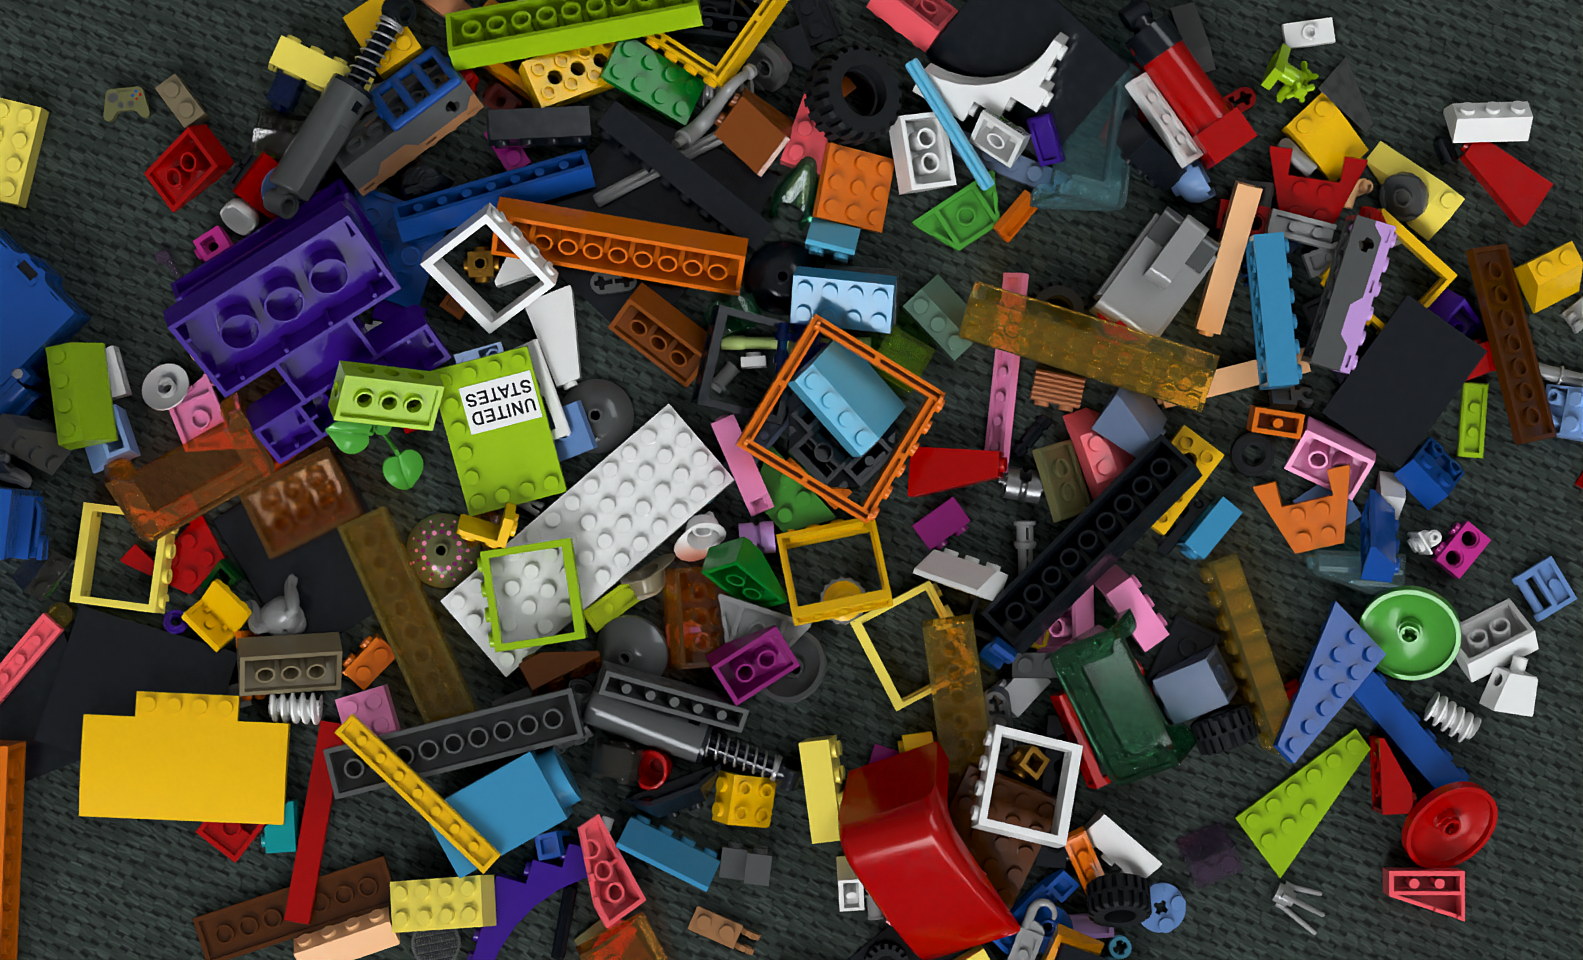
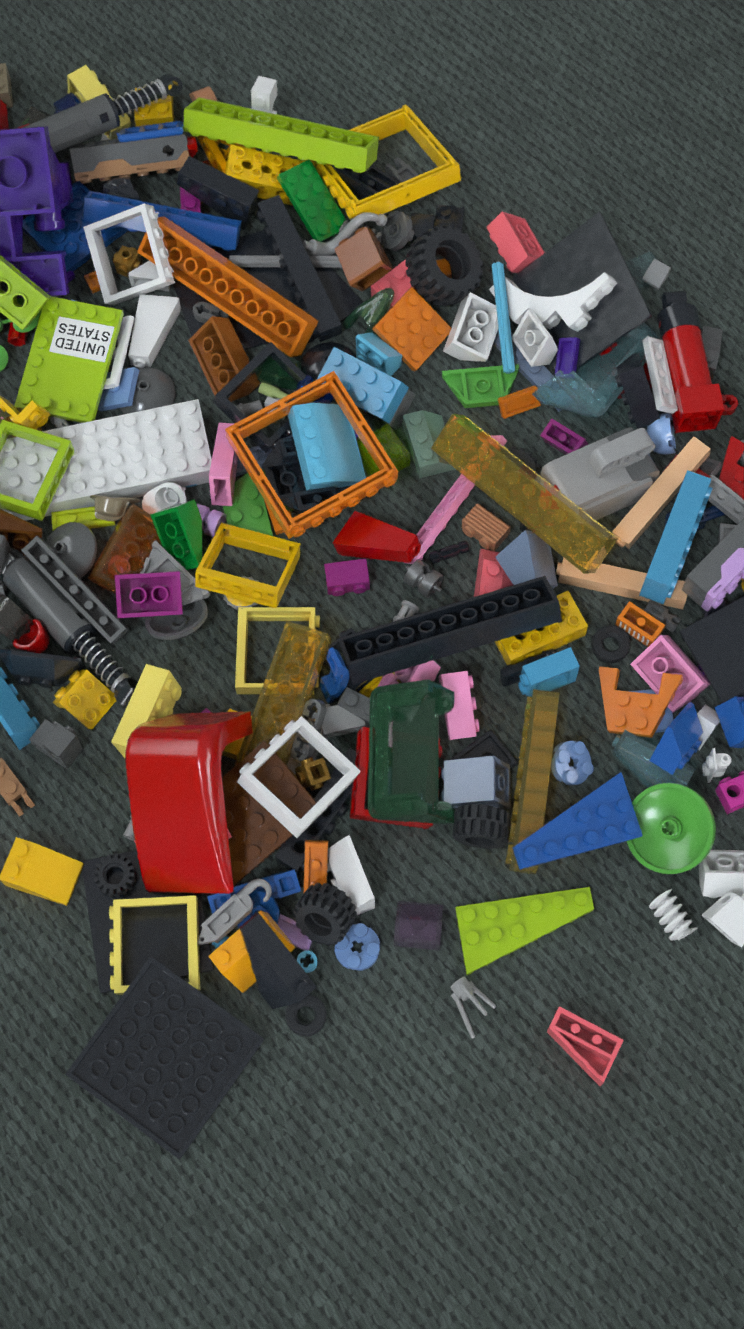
camera: 30 degrees right, 20 degrees down
(849, 887) = (119, 806): white slope -> none
(963, 574) = (338, 611): white slope -> none
(1062, 480) = (454, 581): olive tile -> none
(1091, 242) = (562, 438): none -> magenta brick
(1288, 610) = (582, 762): none -> medium blue plate
(1389, 785) = (595, 943): red slope -> none
(1406, 734) = (630, 915): blue brick -> none
(1449, 825) = (629, 995): red dish -> none

